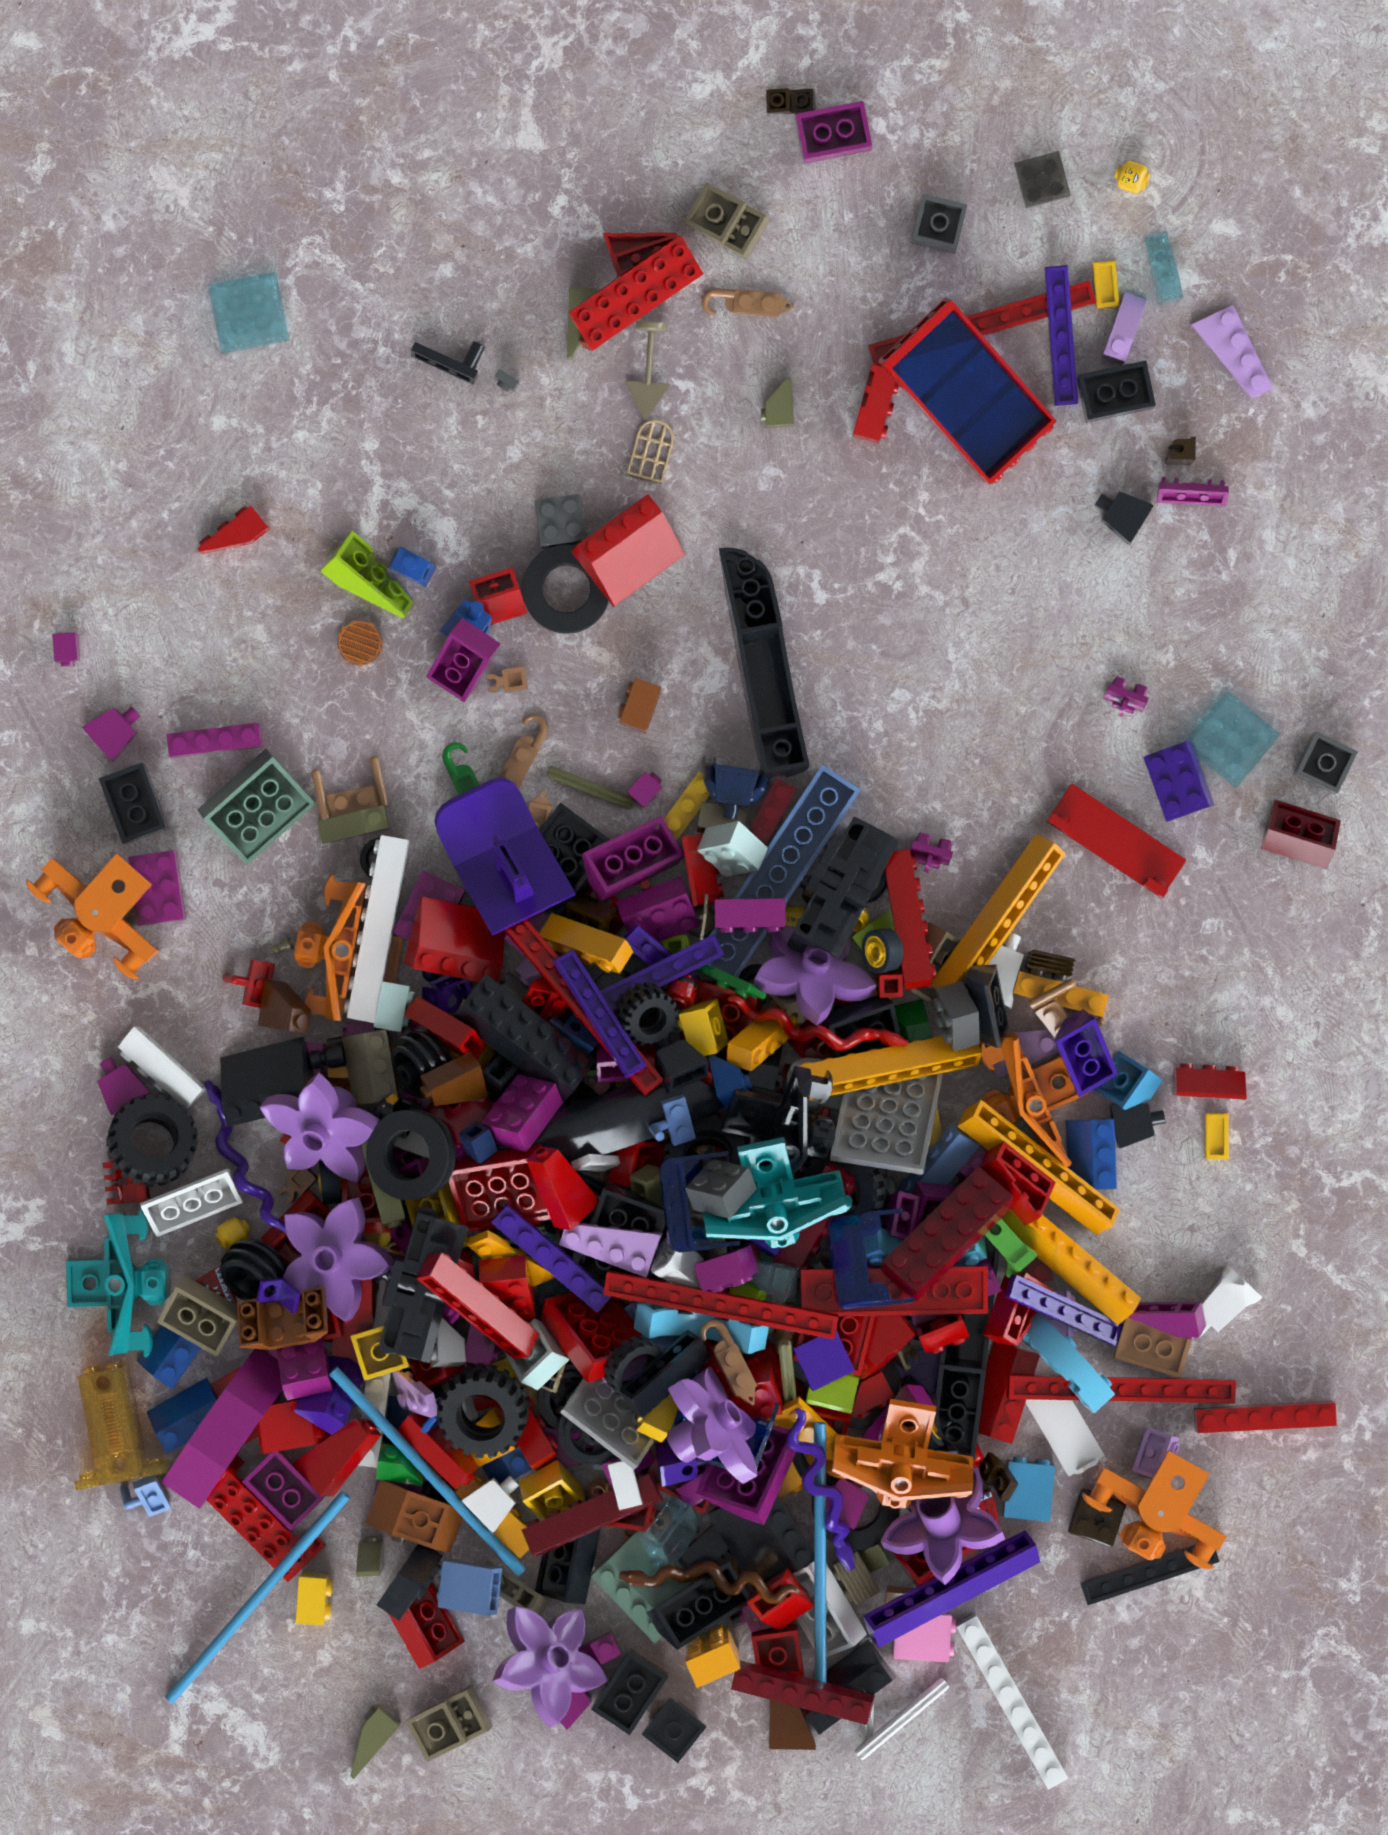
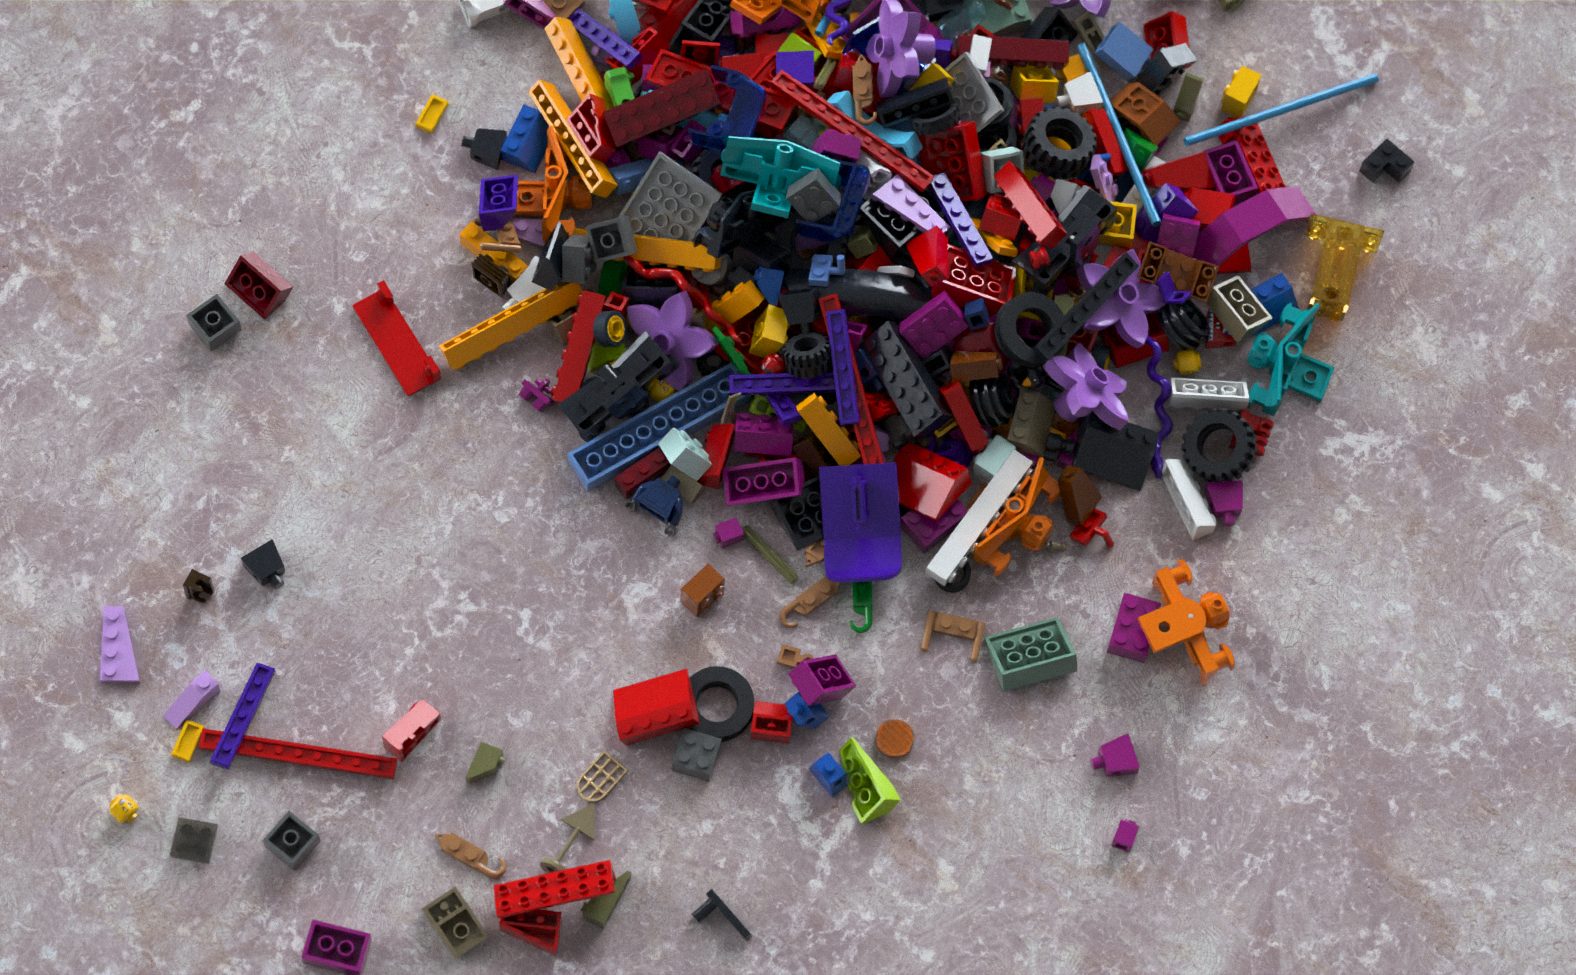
camera: 160 degrees left, 20 degrees down
(113, 1597) = (1387, 159): none -> black brick
(133, 803) = (1124, 695): black brick -> none
(149, 1494) = (1331, 210): medium blue plate -> none
(181, 1415) = (1279, 254): blue slope -> none
(214, 740) = (1024, 708): magenta arch -> none
(241, 531) = (951, 860): red slope -> none
(298, 1182) = (1126, 374): medium nougat plate -> none
(353, 824) = (961, 605): olive slope -> none
(361, 1212) = (1085, 307): none -> black plate
(436, 1238) = (1039, 258): none -> red wheel
(506, 381) = (687, 879): dark grey plate -> none
(687, 806) = (703, 509): yellow plate -> none
(749, 914) = (695, 396): magenta brick -> none
(763, 664) = (594, 578): black slope -> none
(929, 1049) = (611, 239): none -> dark grey brick
(967, 391) = (336, 700): clear blue window -> none
(1116, 391) = (223, 654): black brick -> none
(1124, 699) = (328, 431): magenta hips -> none
(1132, 1085) = (472, 169): dark azure slope -> none
(1163, 269) = (138, 729): clear light blue slope -> none
(1178, 780) = (328, 358): dark purple brick -> none
(1192, 493) = (205, 558): magenta plate -> none
(1209, 1082) = (418, 145): red slope -> none
(1232, 739) = (273, 374): clear light blue plate -> none

